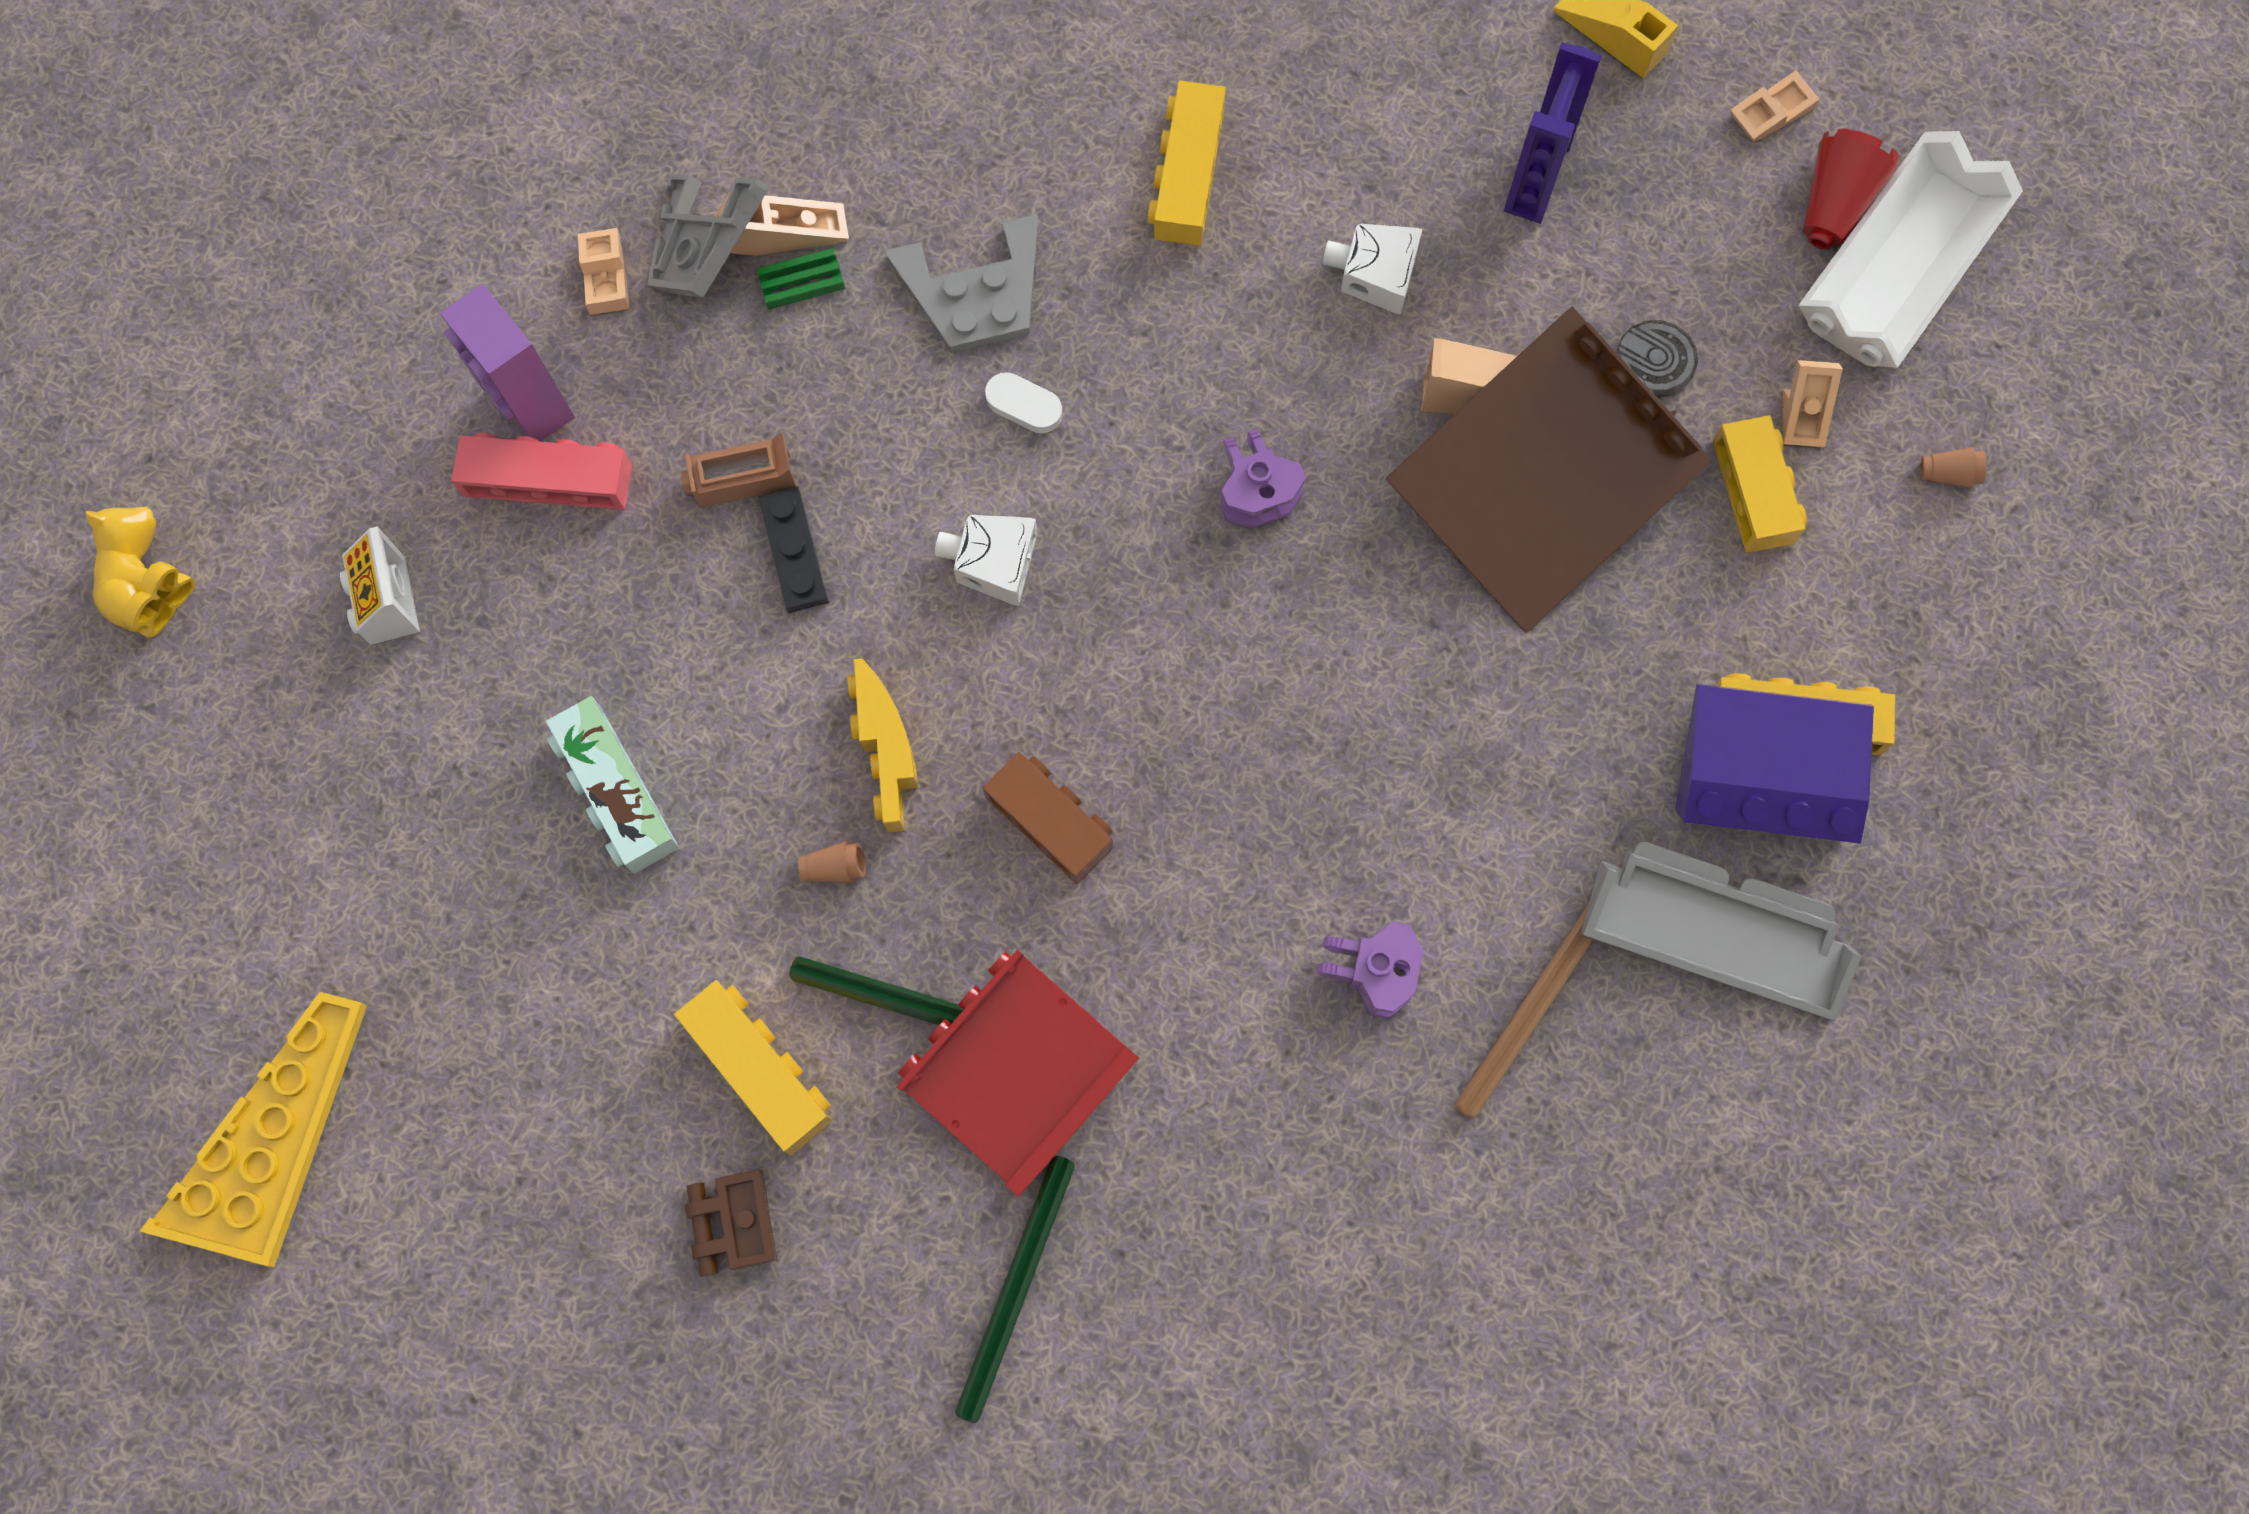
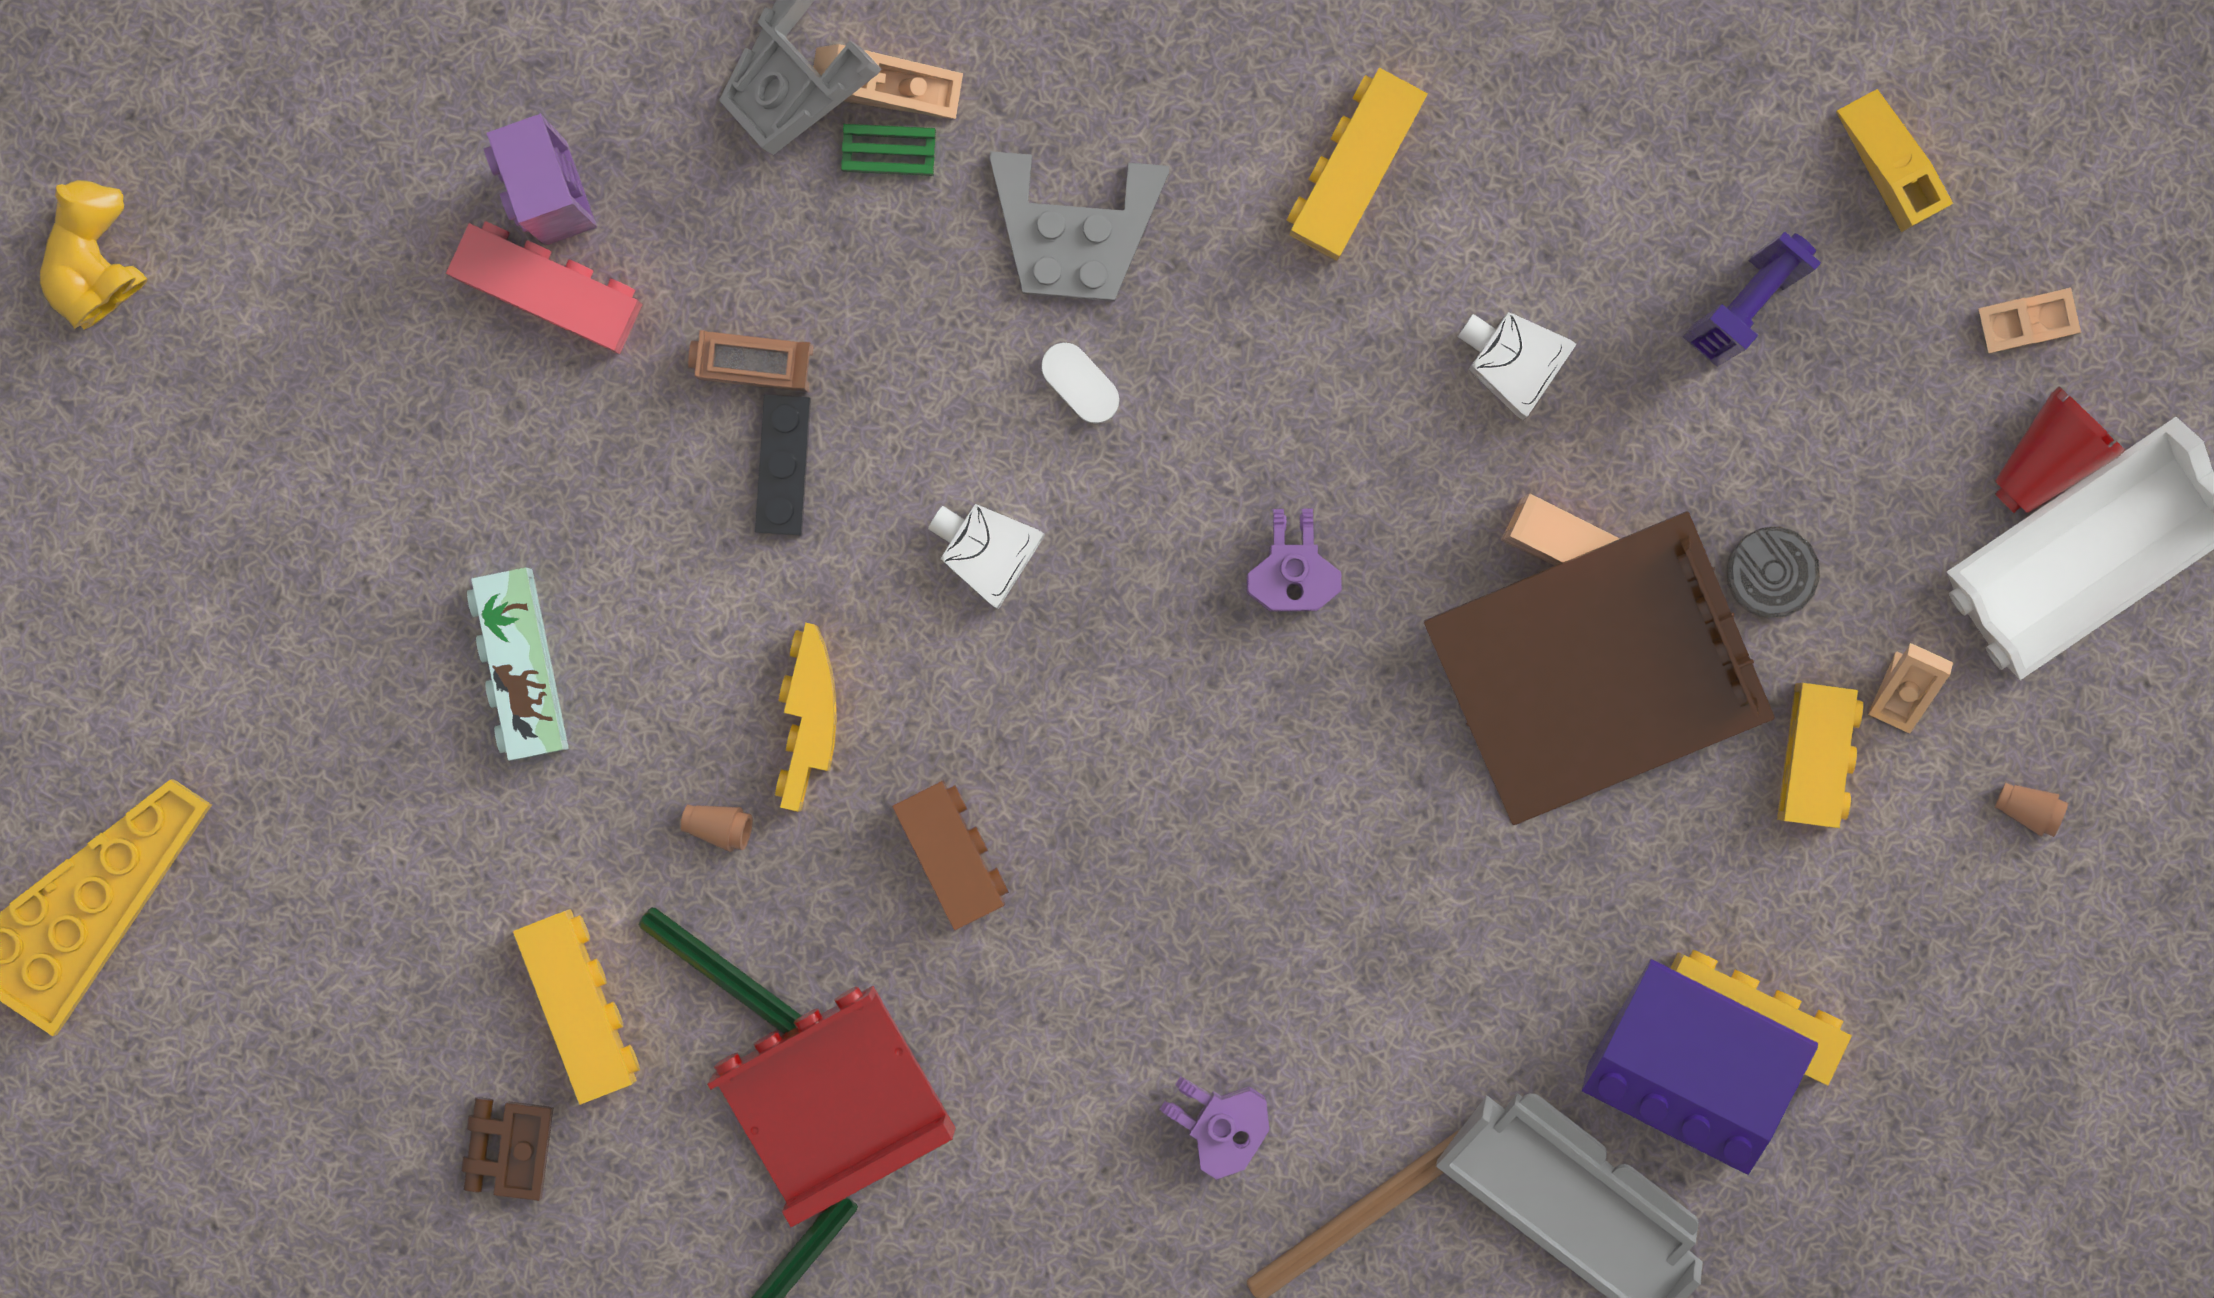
camera: 20 degrees right, 15 degrees up
(378, 589) = (337, 367): white slope -> none
(603, 271) = (676, 65): light nougat slope -> none

